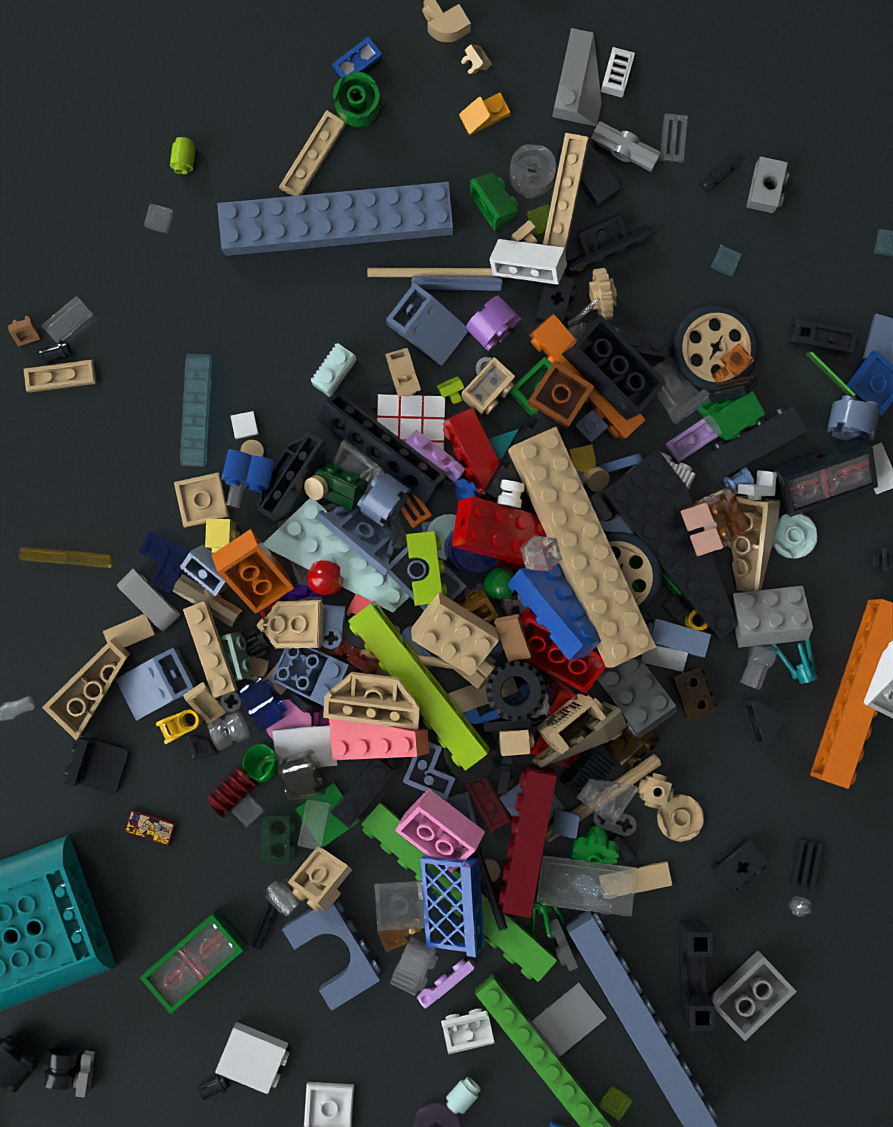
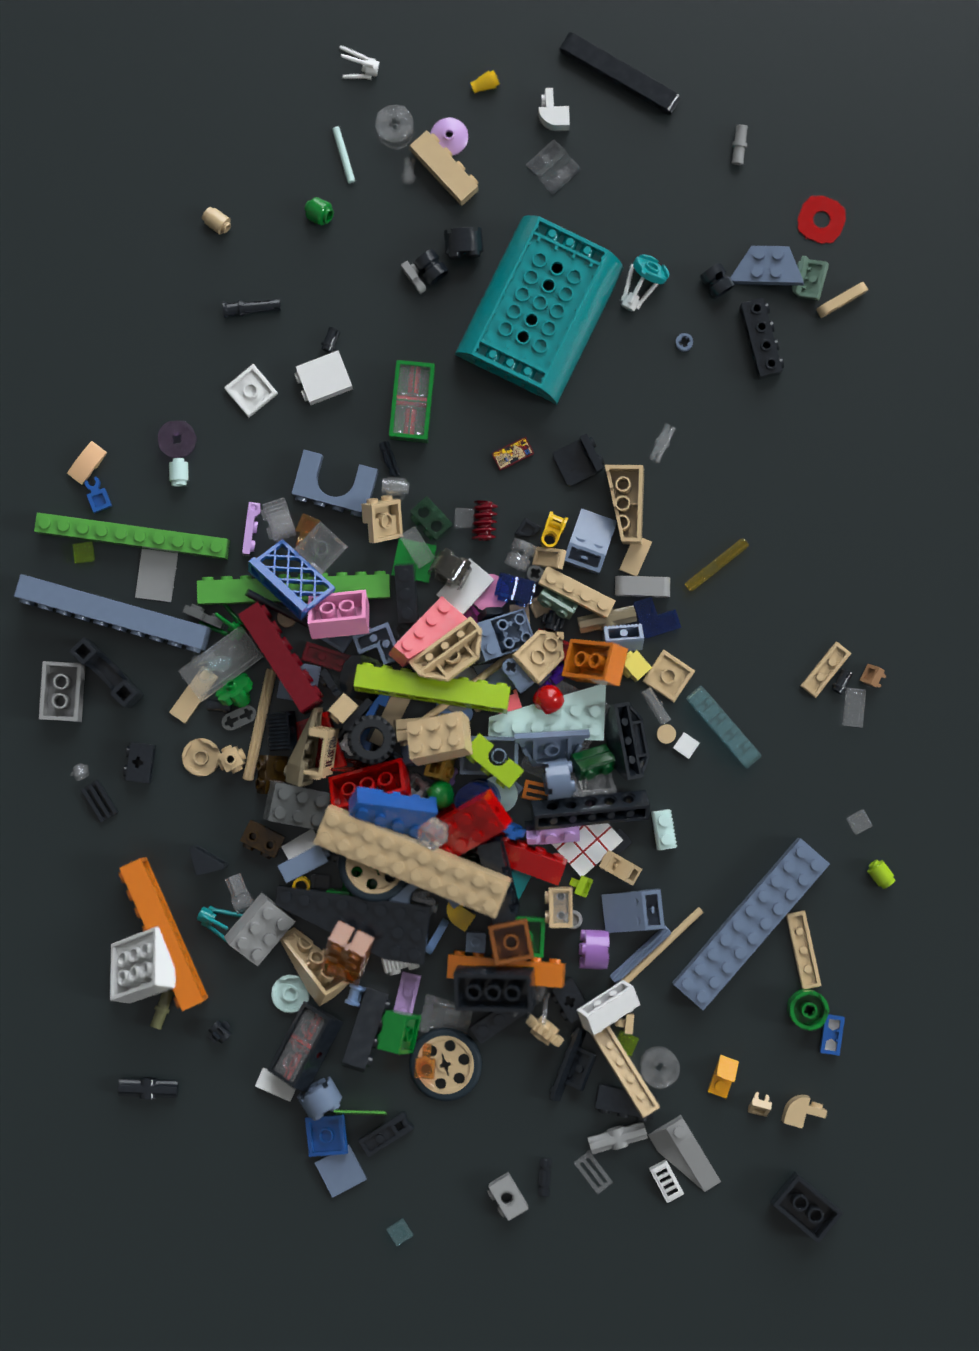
camera: 135 degrees right, 0 degrees up
(247, 470) = (656, 719): blue brick -> none
(261, 763) = (482, 553): green hair -> none
(316, 487) = (605, 748): tan tile -> none
(352, 655) = (488, 668): clear red plate -> none
(467, 1031) = (211, 512): white bracket -> none
(493, 200) = (665, 1026): green slope -> none
(508, 498) = (484, 853): white wheel -> none
(513, 637) = (402, 769): medium nougat tile -> none
(565, 823) = (267, 688): sand blue slope -> none
(597, 479) = (442, 913): tan tile -> none
(607, 798) = (256, 727): clear wing -> none
(726, 260) = (489, 1125): clear light blue tile -> none
(733, 388) = (410, 1046): black tile -> none
(764, 486) = (336, 1004): white bracket -> none

